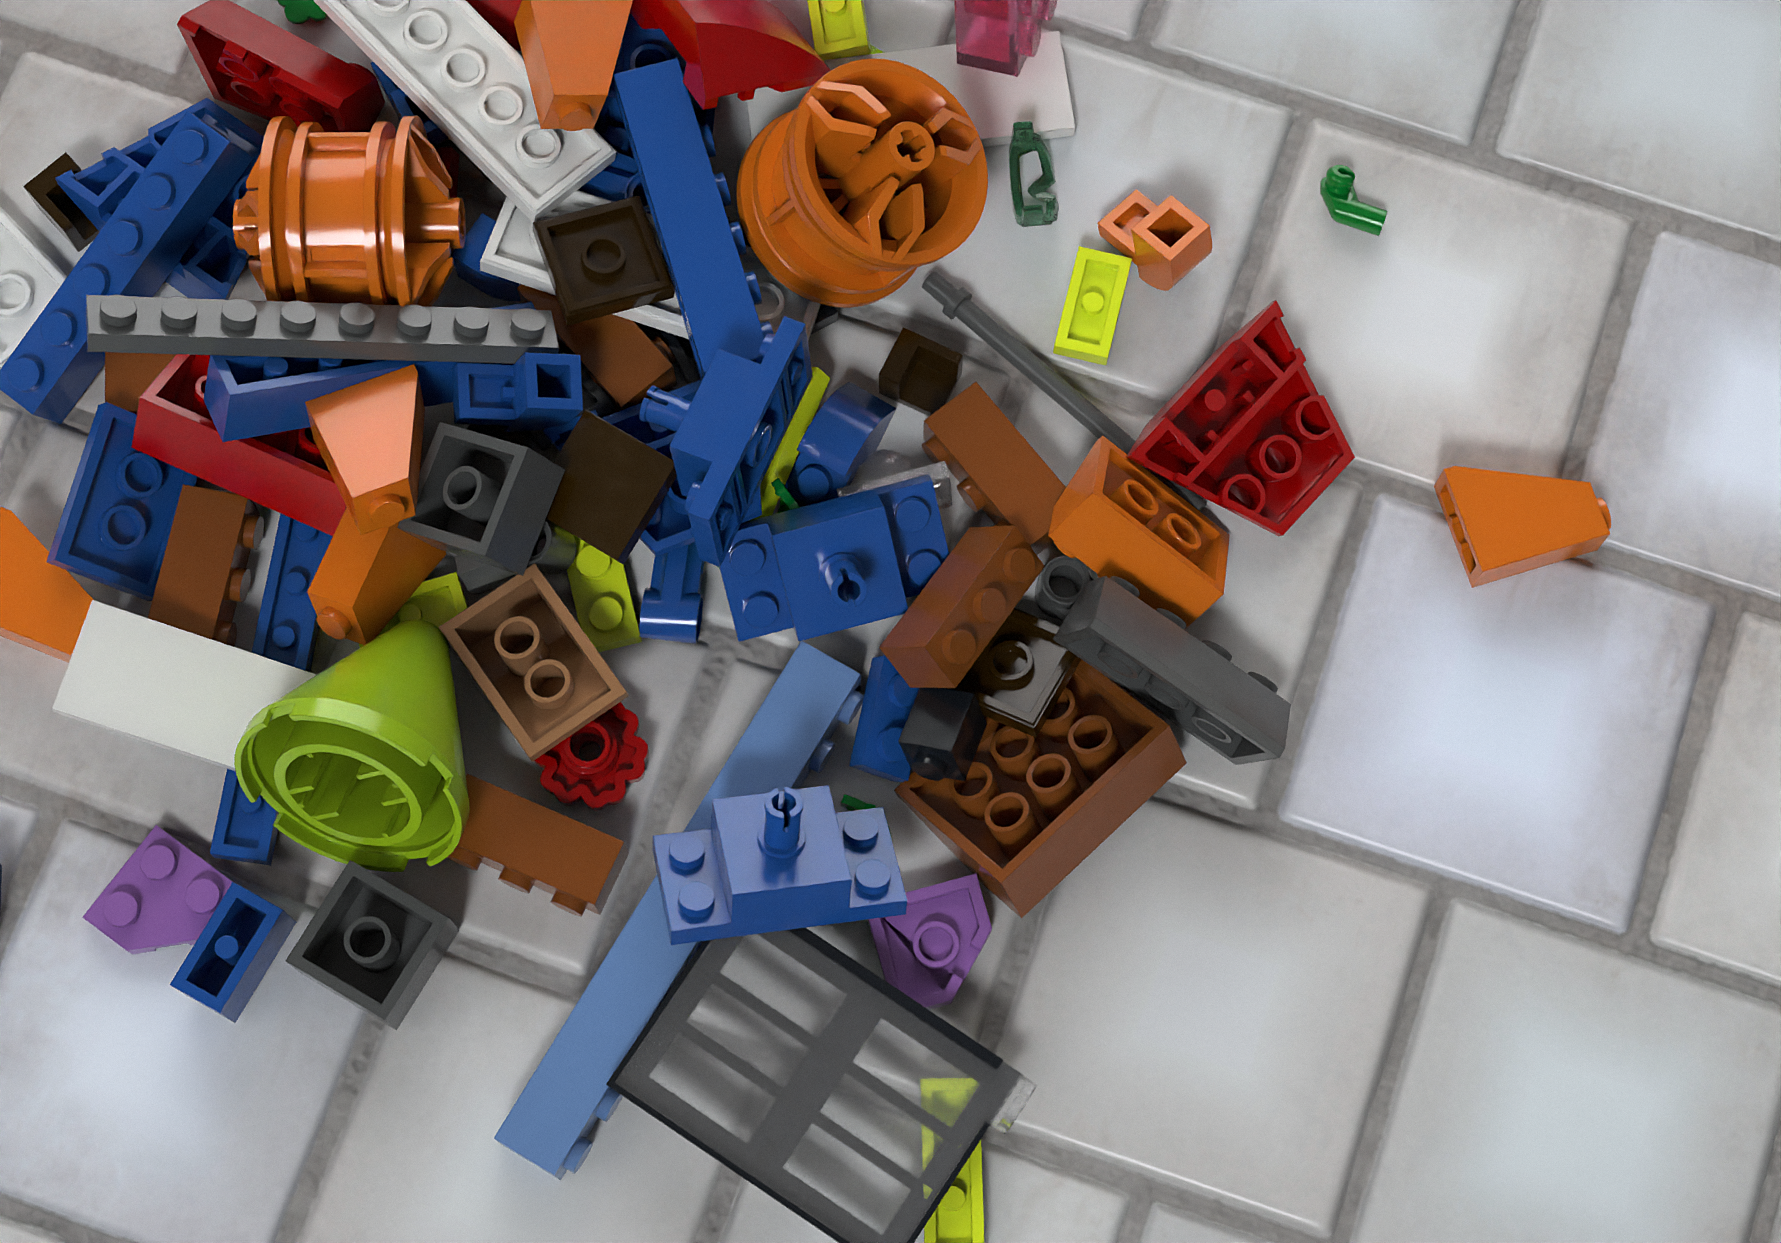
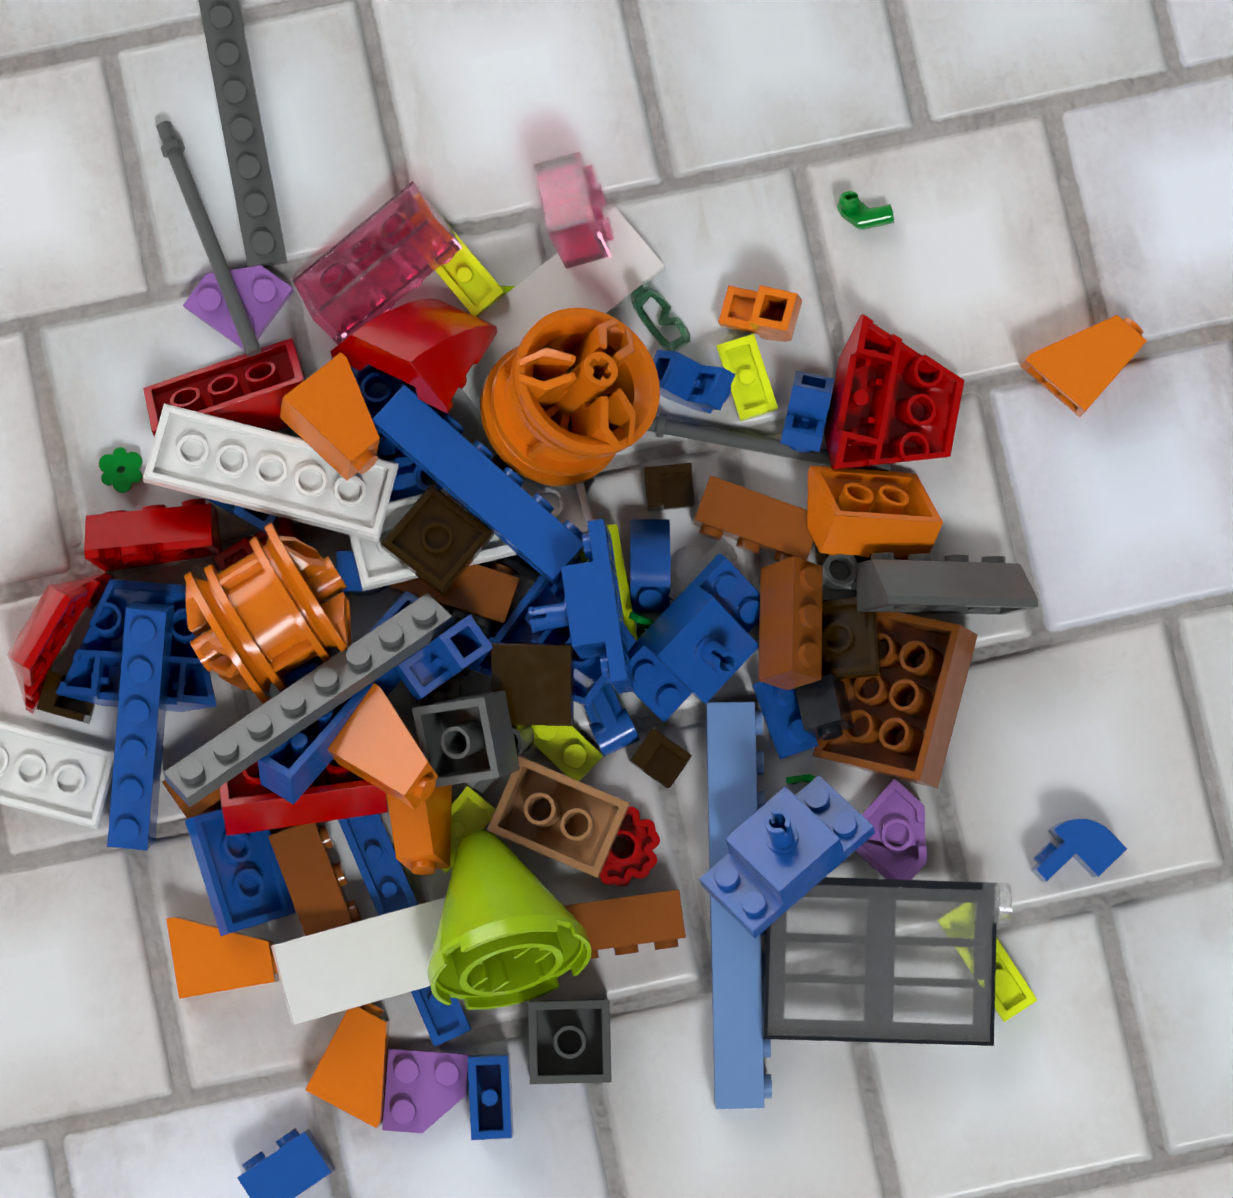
camera: 30 degrees left, 10 degrees up
(96, 107) = (48, 631): none -> red wedge
(103, 815) = (355, 1065): none -> orange slope
(706, 679) = (660, 758): none -> dark brown panel
(1018, 266) = (691, 383): none -> blue brick
(1139, 382) = (807, 412): none -> blue brick
(1168, 1096) = (1084, 840): none -> blue brick

